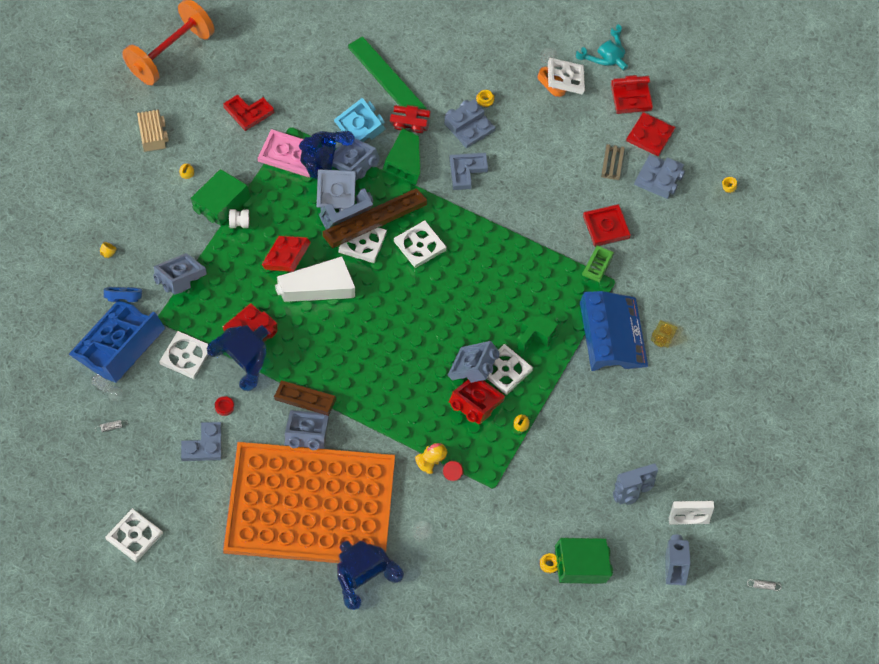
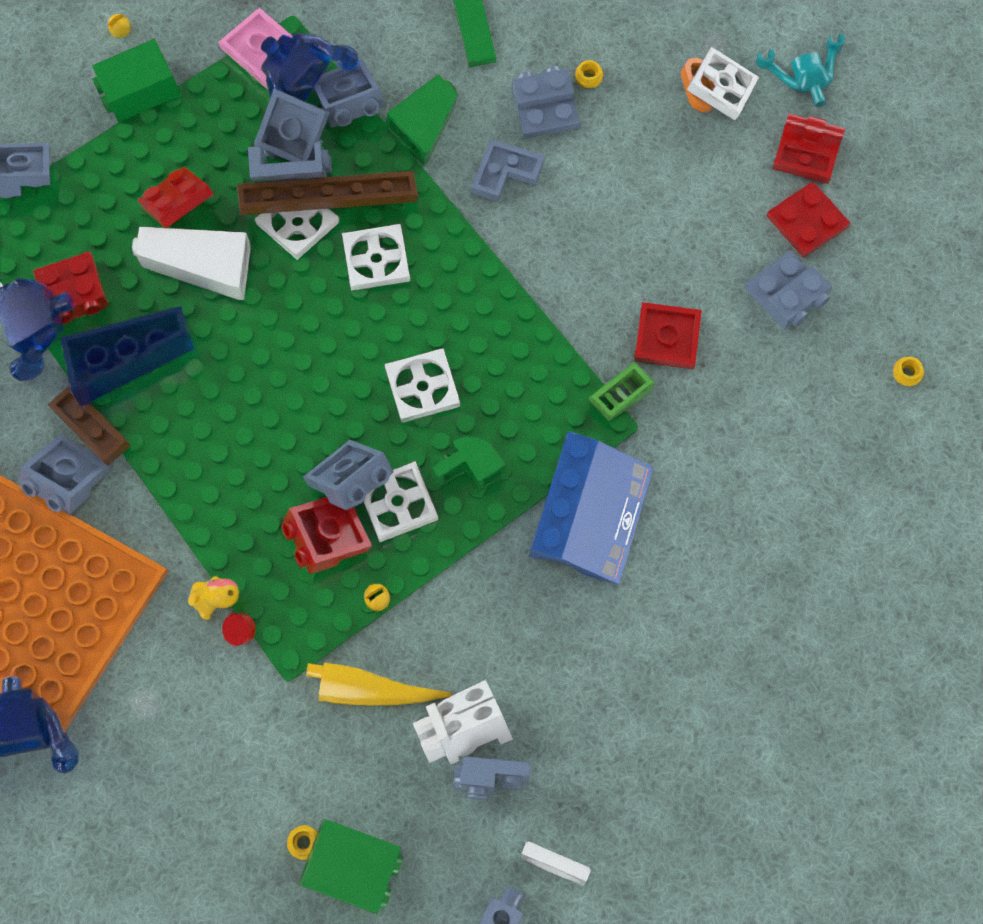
camera: 30 degrees right, 10 degrees up
(238, 218) = (144, 121): white wheel -> none
(306, 348) = (123, 351): none -> clear blue wedge
(361, 121) = (391, 43): medium azure plate -> none
(410, 119) = (462, 64): red plate -> none
(485, 320) = (416, 363): none -> white piece
(537, 472) = (359, 687): none -> yellow piece
(605, 464) = (462, 724): none -> white hips
(614, 149) = (741, 222): dark tan tile -> none
(663, 334) = (668, 543): clear yellow bracket -> none
(726, 183) = (886, 340): yellow hinge -> none
(746, 190) = (912, 364): none -> yellow plate

